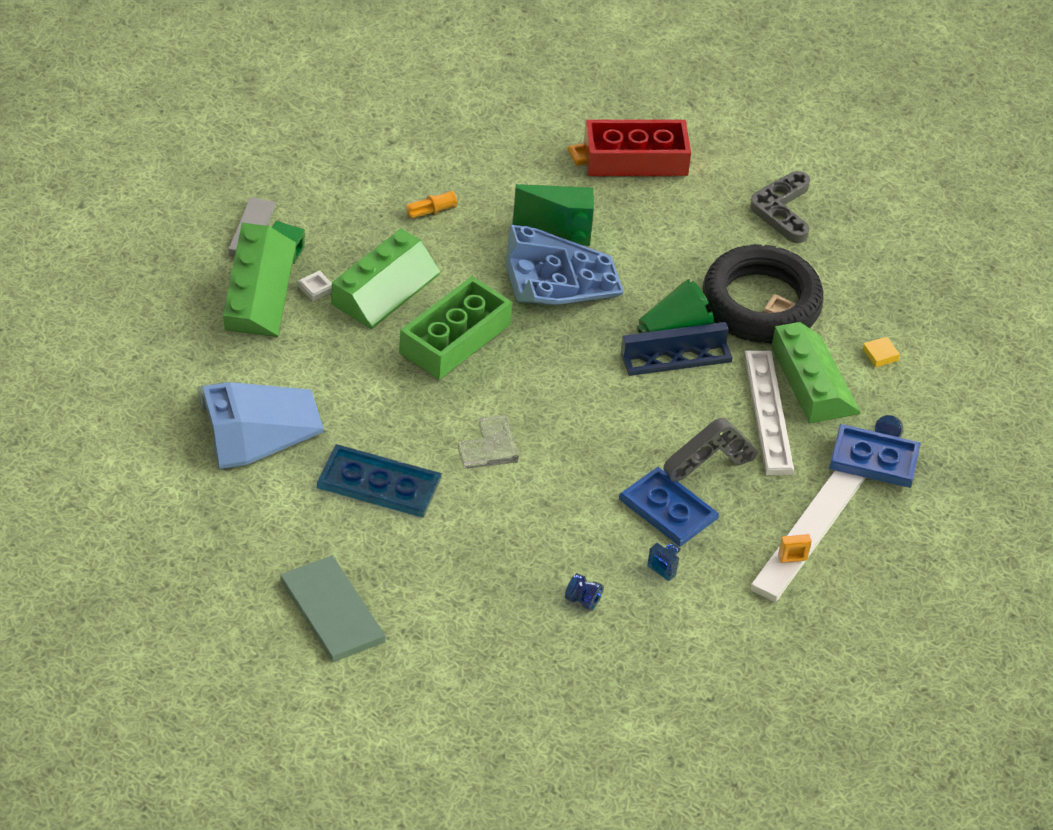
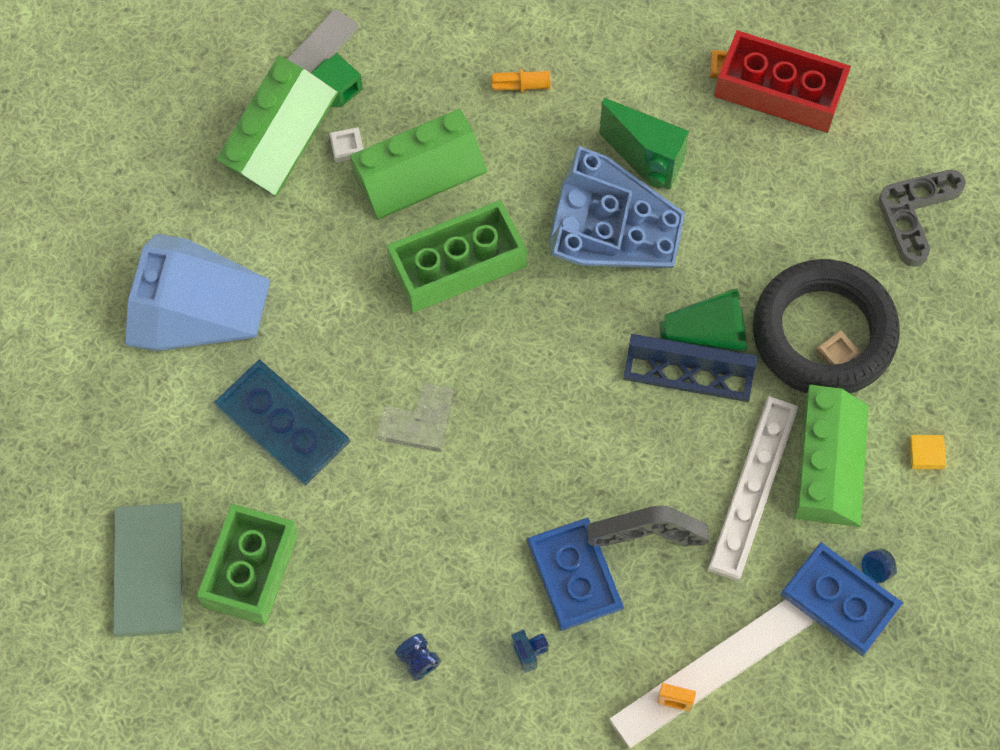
camera: 30 degrees right, 20 degrees up
(416, 572) = (248, 564): none -> bright green brick

